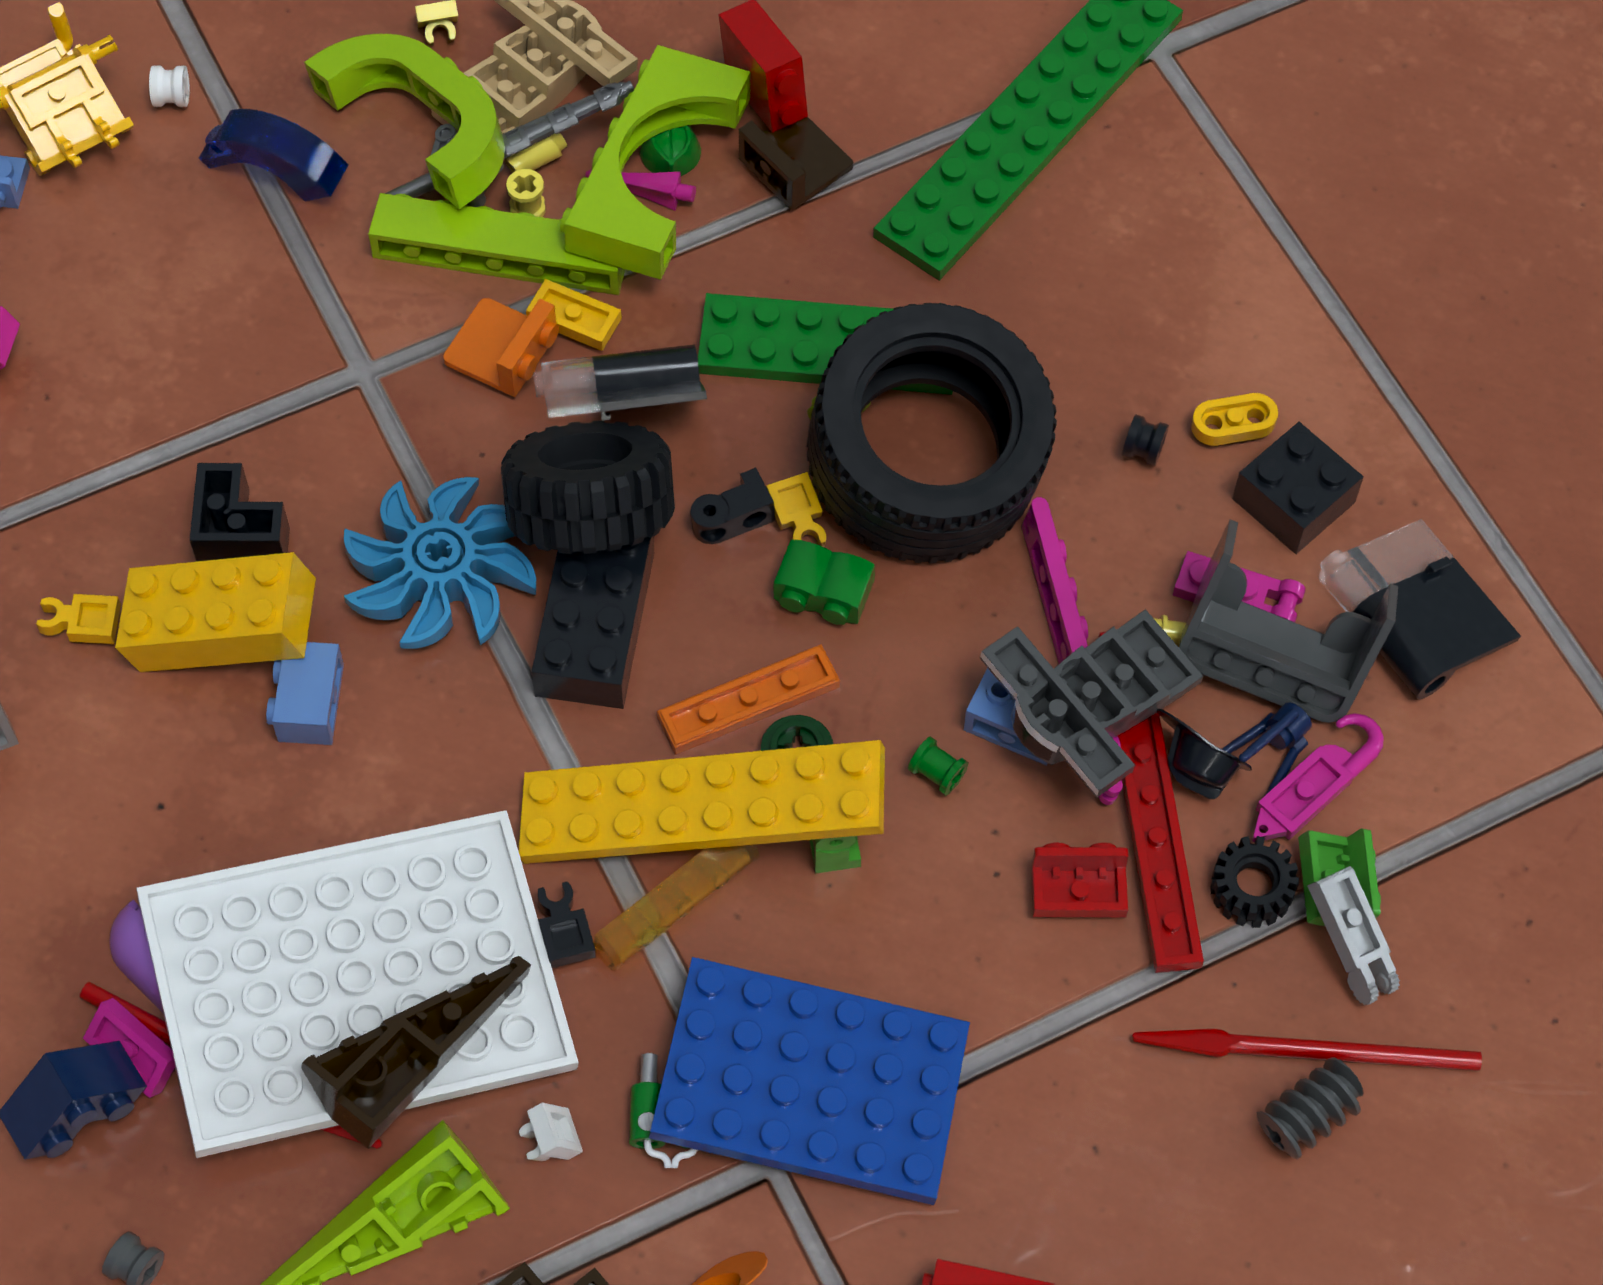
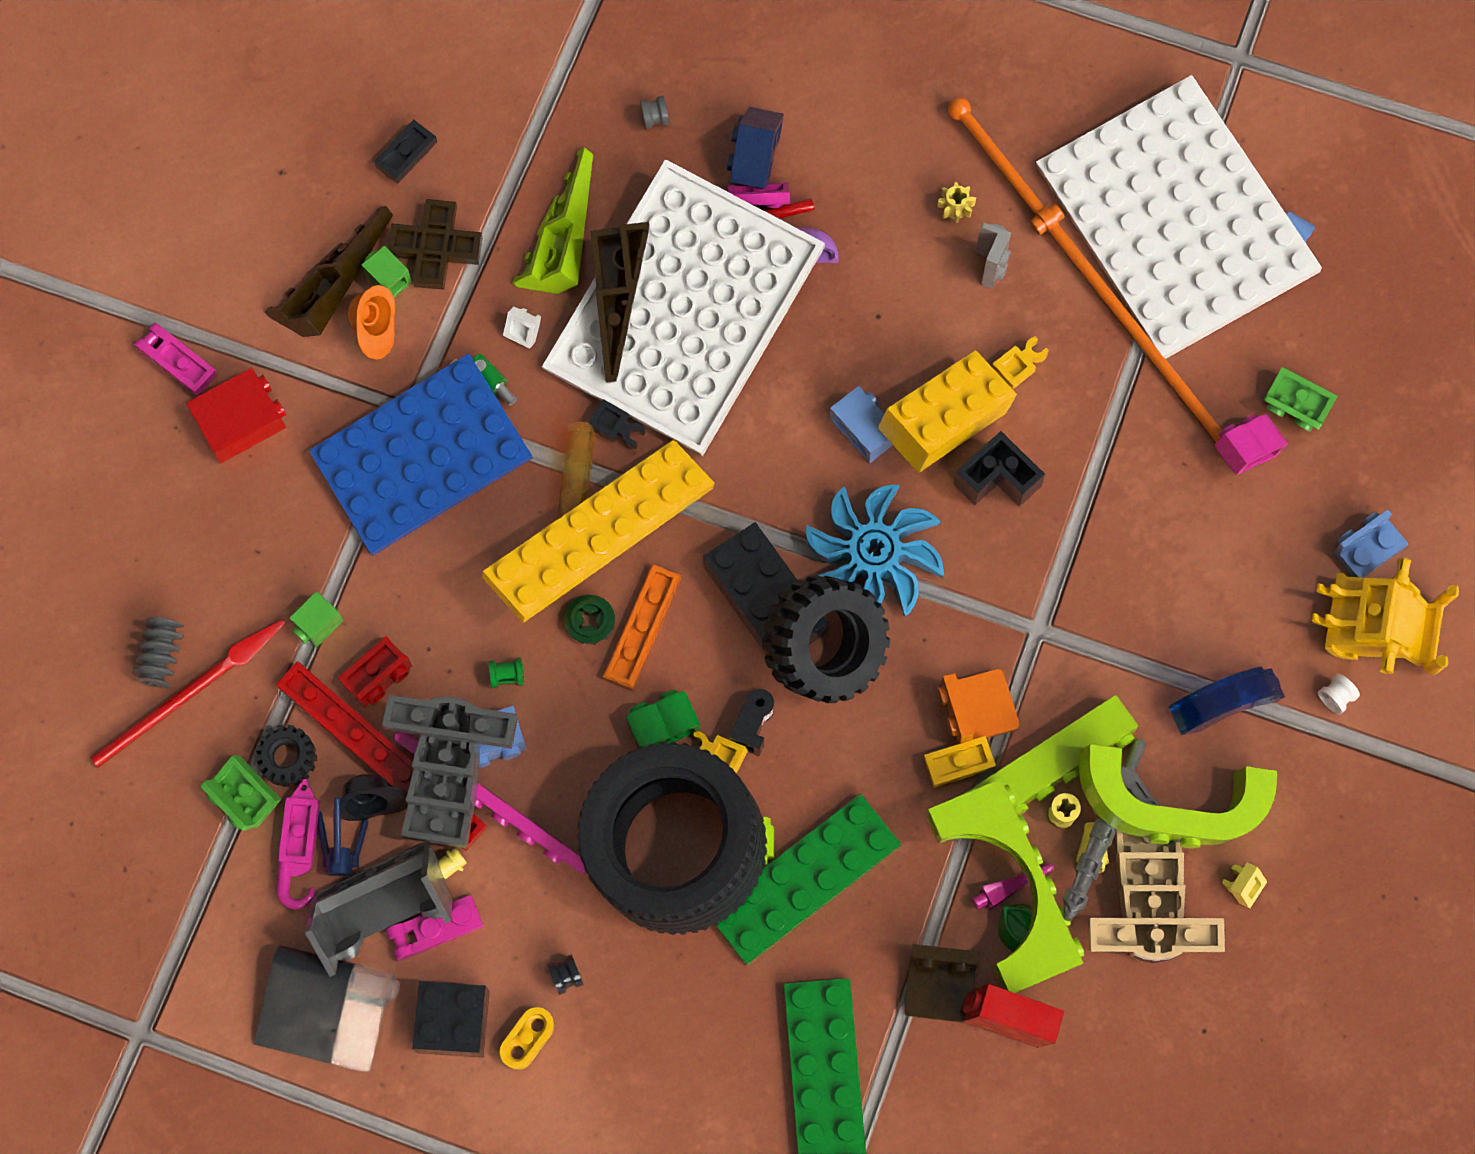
camera: 140 degrees right, 10 degrees up
(619, 381) = (876, 727): black door -> none
(1098, 996) = (315, 620): none -> bright green brick
(1355, 935) = (208, 764): light grey hinge -> none

